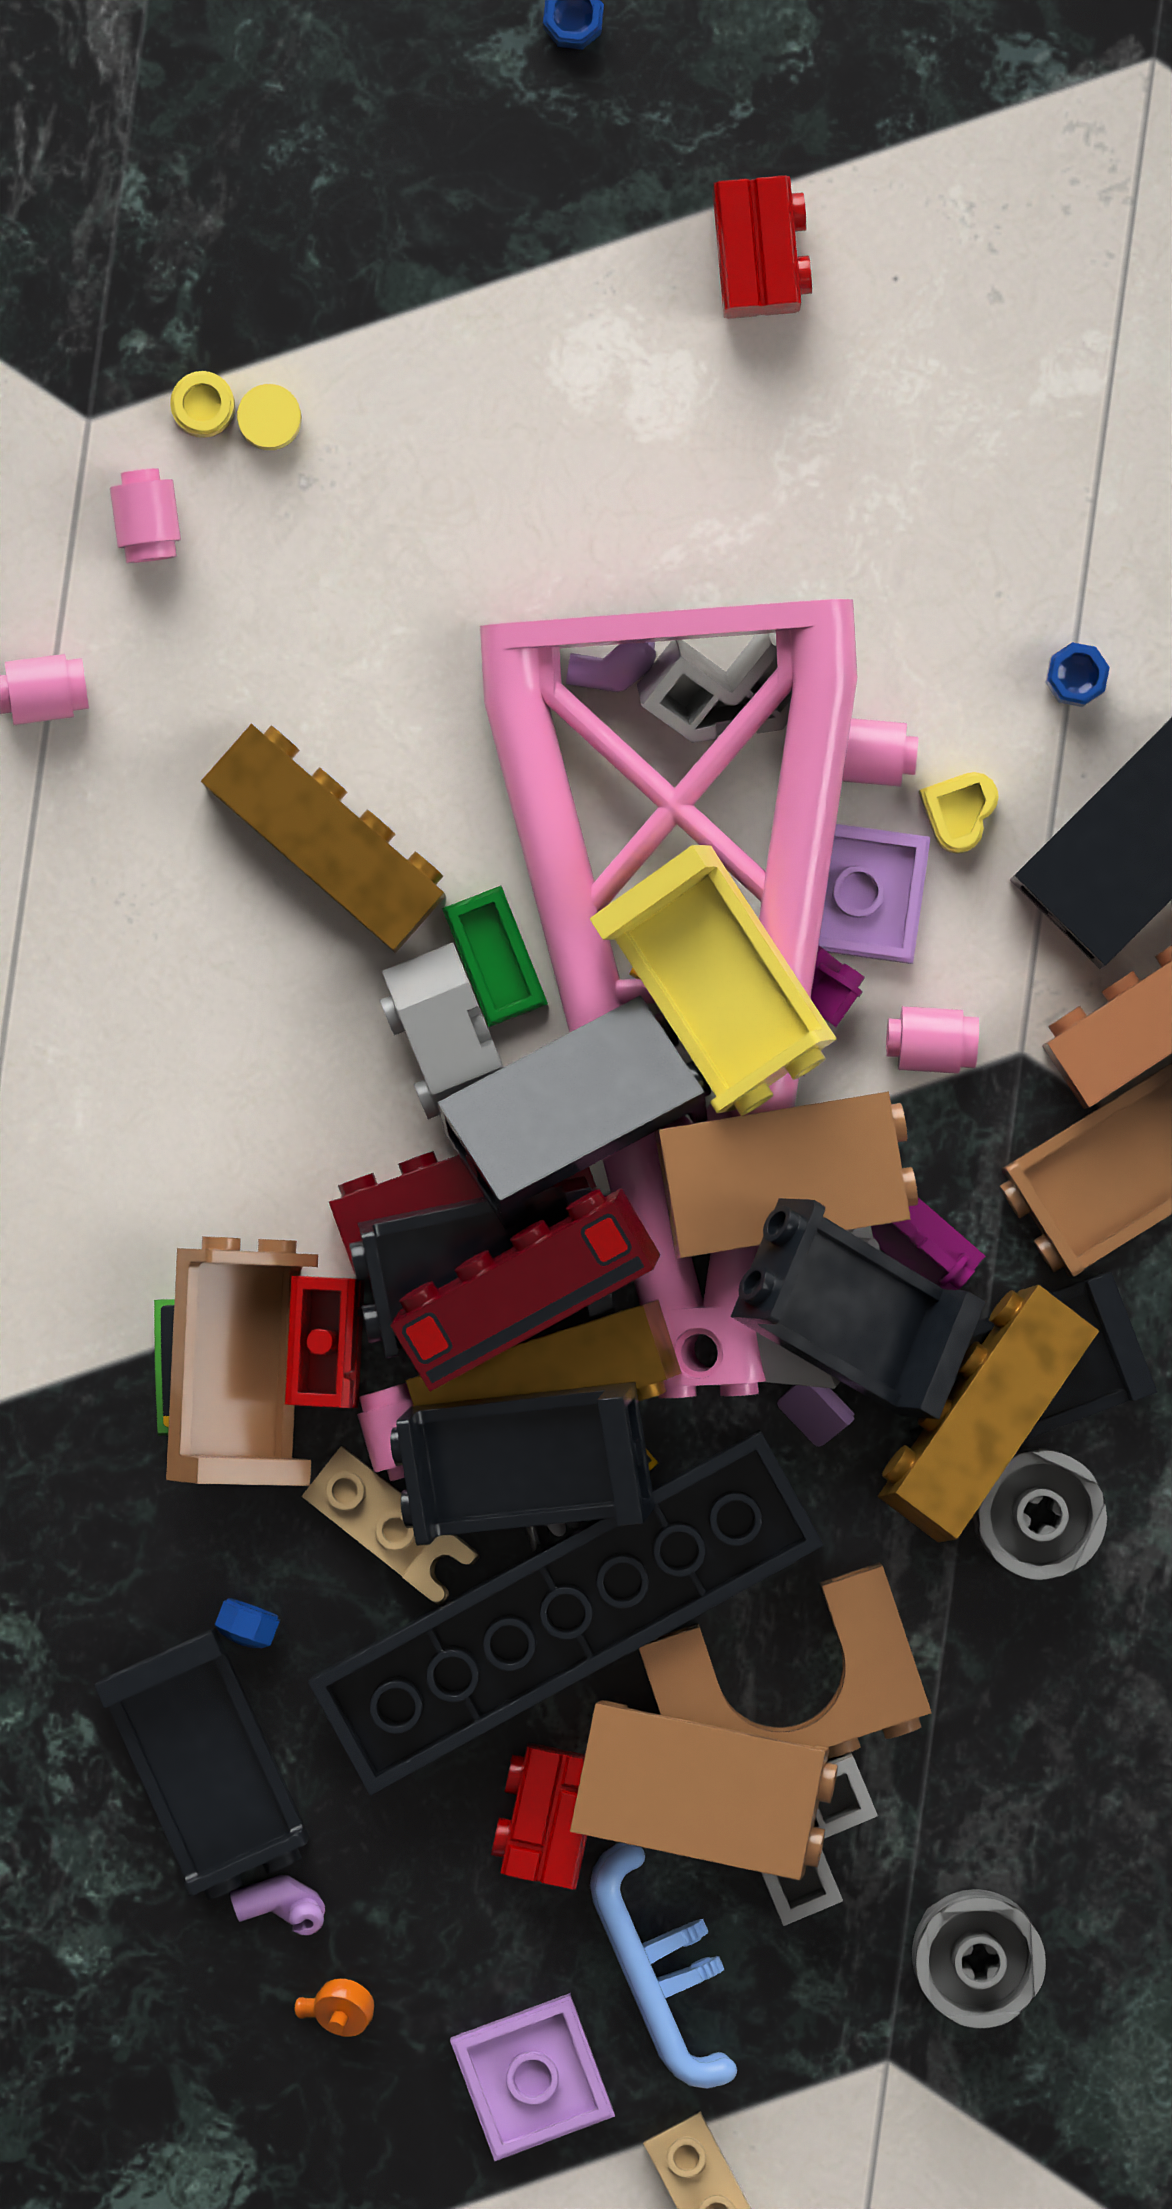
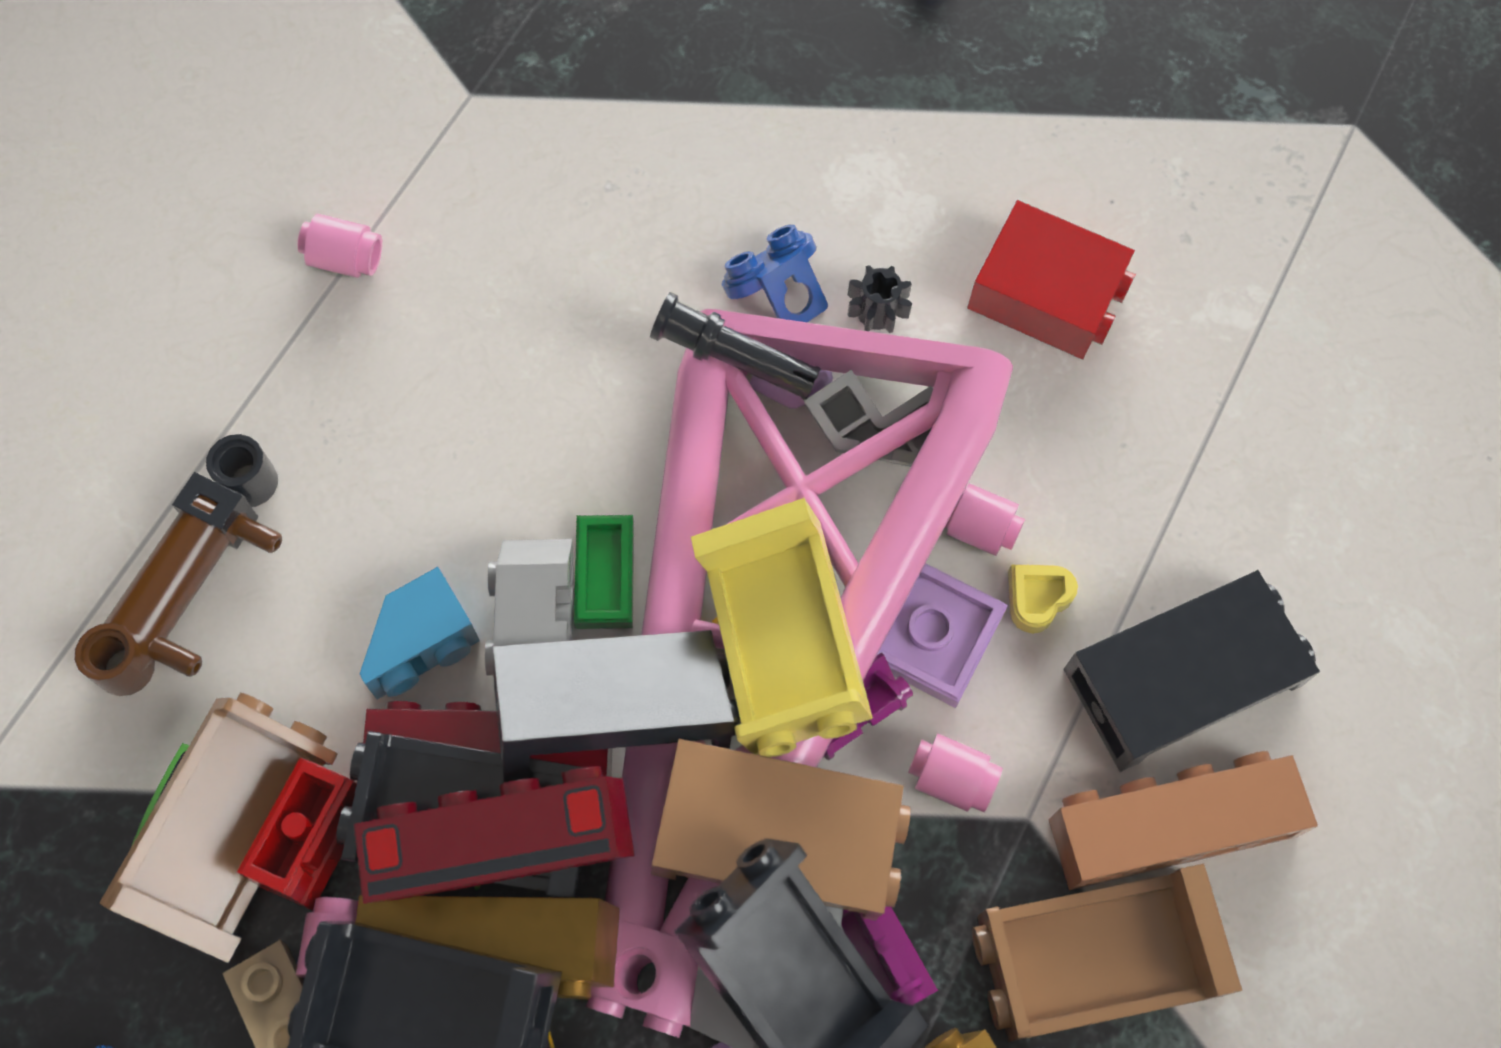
camera: 20 degrees right, 20 degrees down
(56, 1118) = (208, 521): none -> reddish brown piece
(145, 516) = (477, 159): bright pink brick -> none
(202, 404) = (557, 108): light yellow tile -> none
(269, 417) = (602, 131): light yellow tile -> none
(324, 837) = (506, 427): pearl gold brick -> none
(333, 1098) = (415, 632): none -> dark azure slope
(515, 670) = (710, 337): none -> black pin
(539, 532) = (783, 258): none -> blue bracket
(673, 508) = (879, 298): none -> black gear
(758, 246) = (1016, 137): red brick -> none
(860, 427) = (1052, 280): none -> red brick
(1077, 674) = (1174, 521): blue tile -> none

